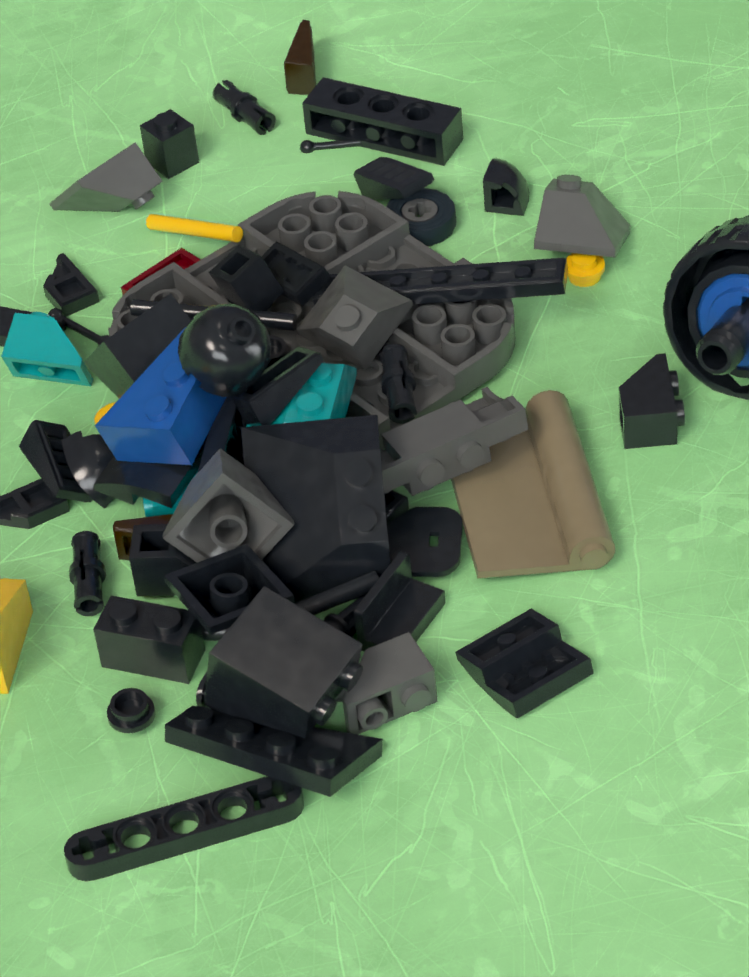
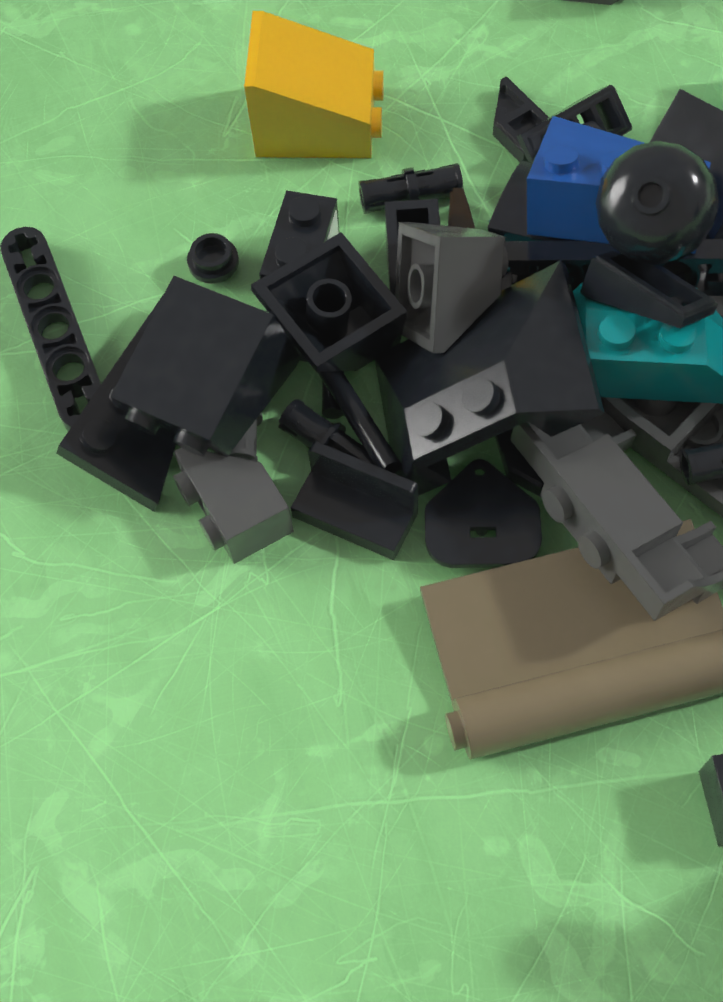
camera: 85 degrees right, 20 degrees up
(524, 663) = (281, 656): black slope -> none

